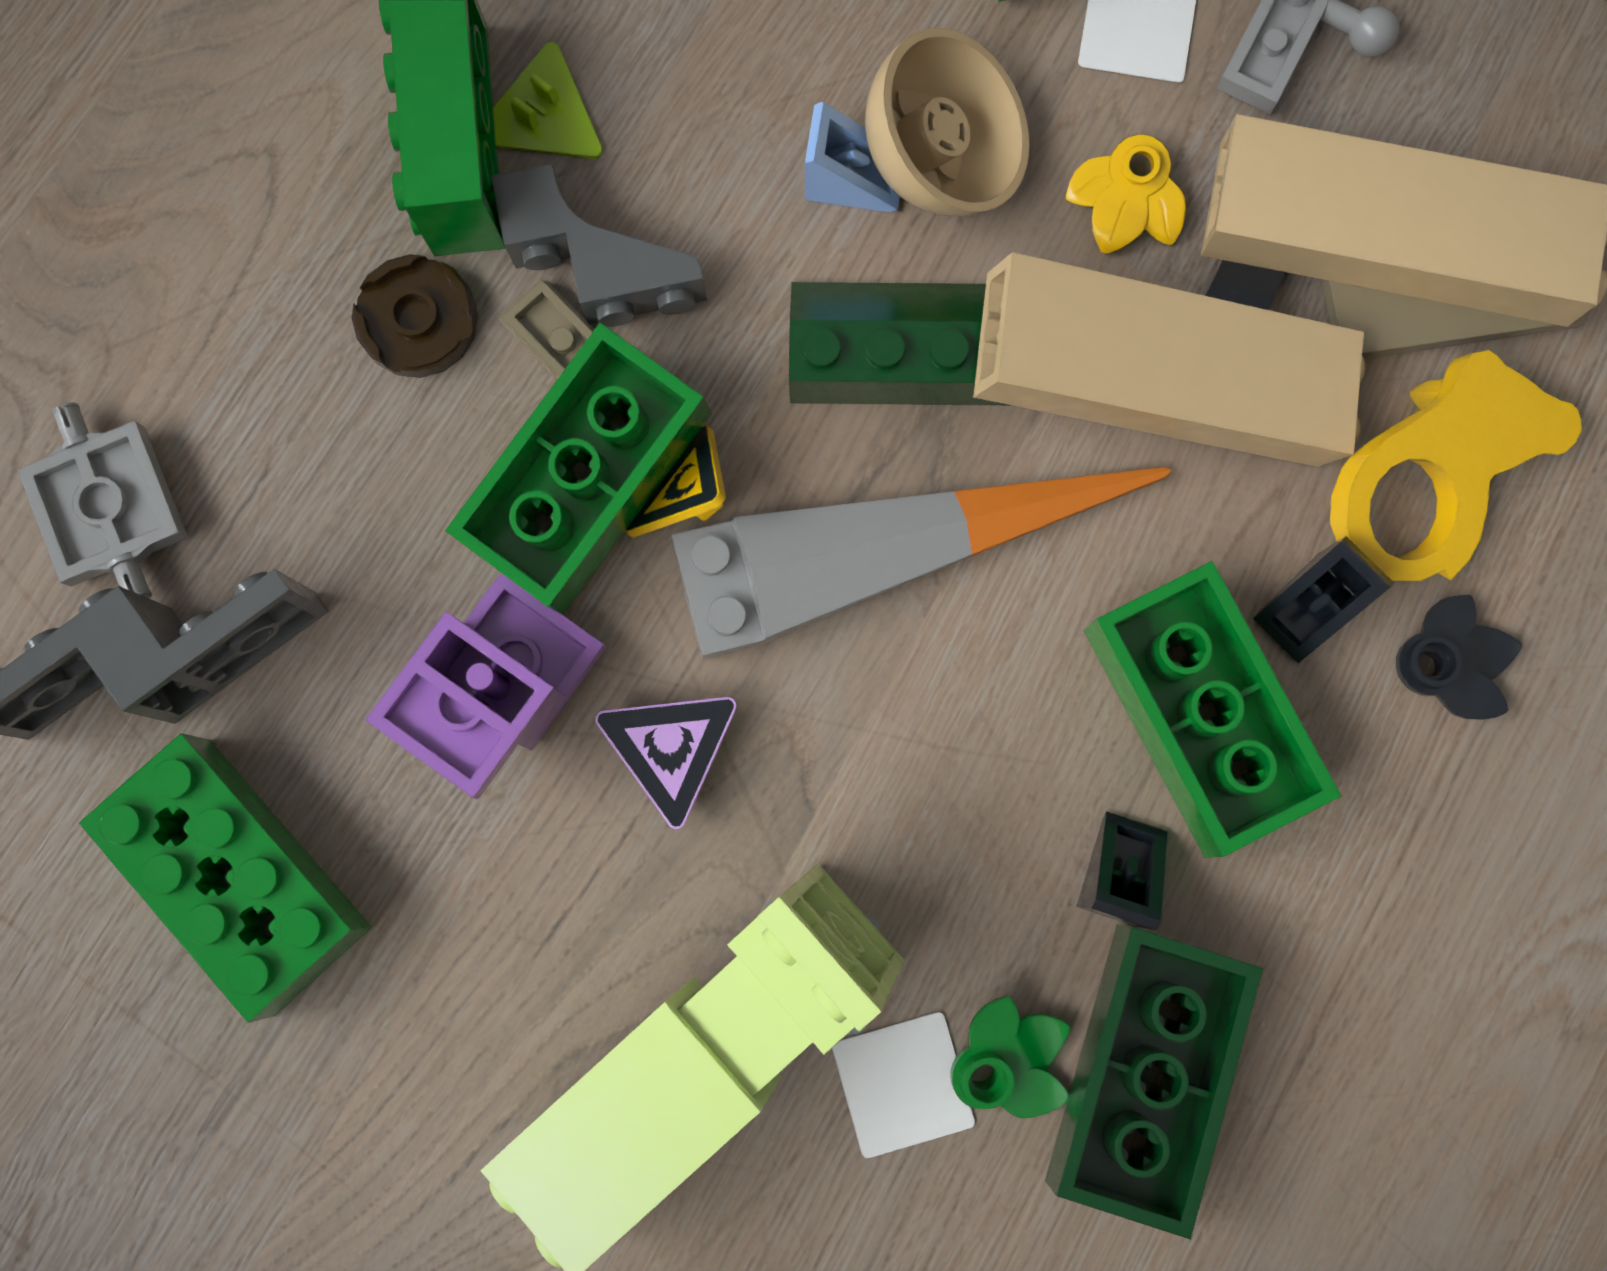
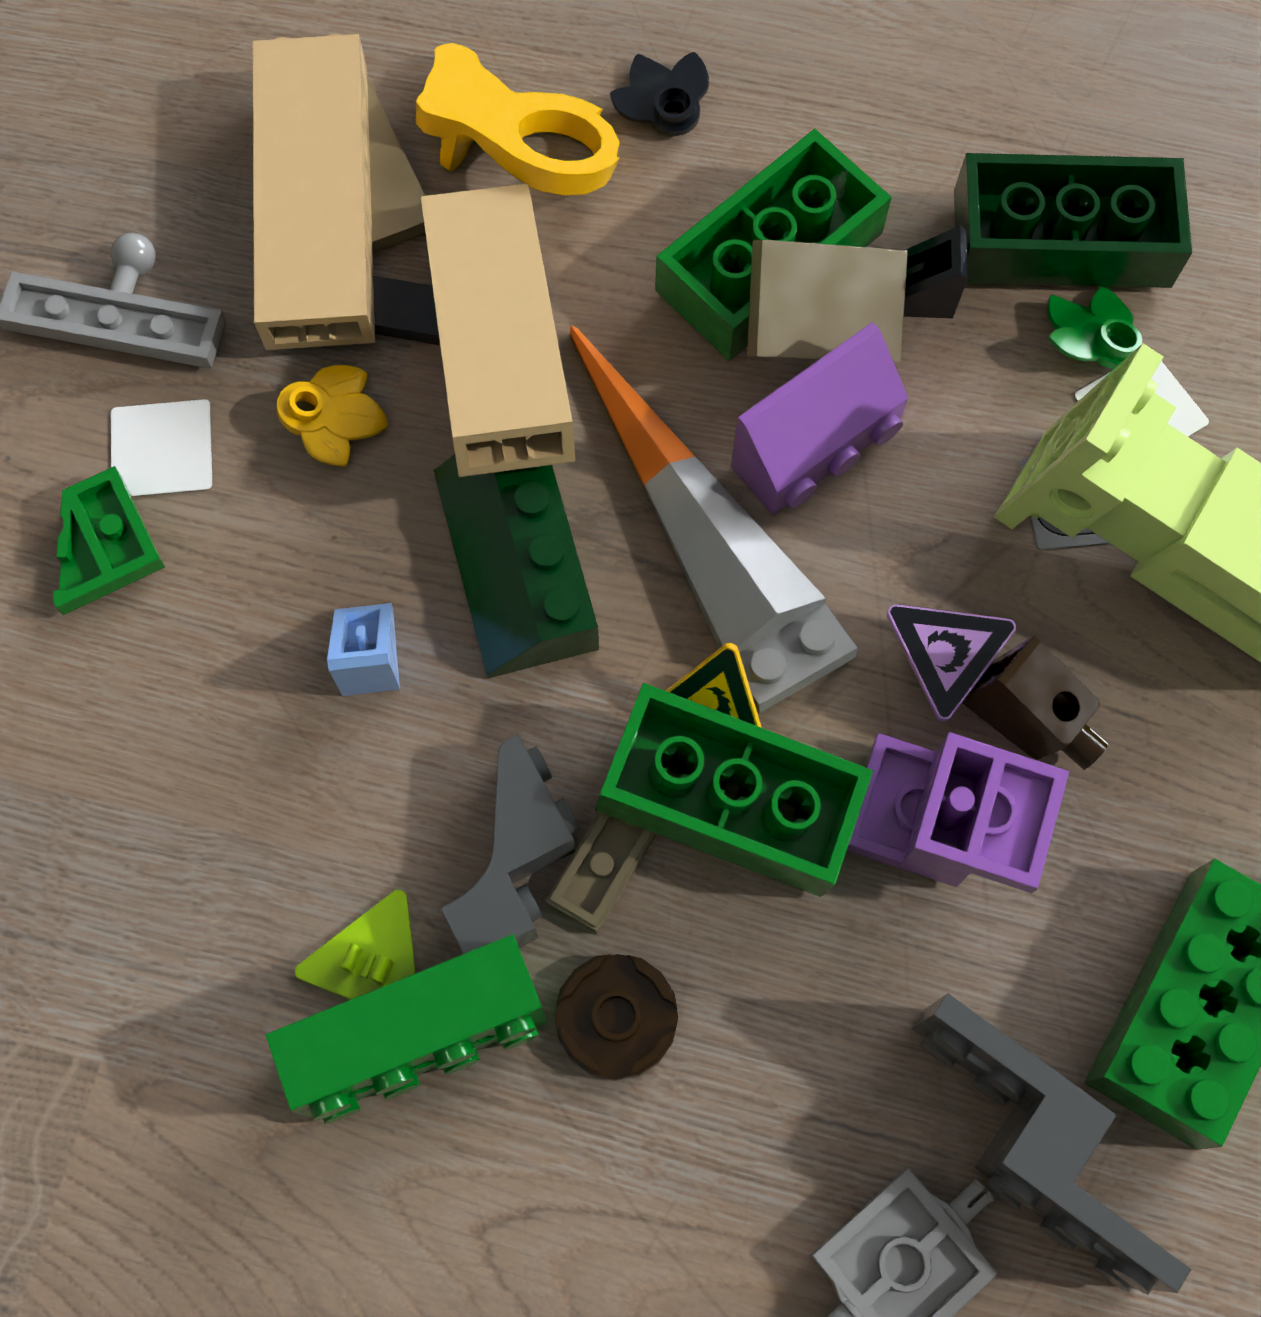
camera: 110 degrees left, 10 degrees down
(591, 800) = (1038, 704): none -> dark brown torso
(947, 125) = (319, 559): tan piece -> none
(964, 690) = (820, 421): none -> medium lavender slope
(1108, 740) = (821, 295): none -> dark tan tile
(1322, 598) = (648, 189): black slope -> none

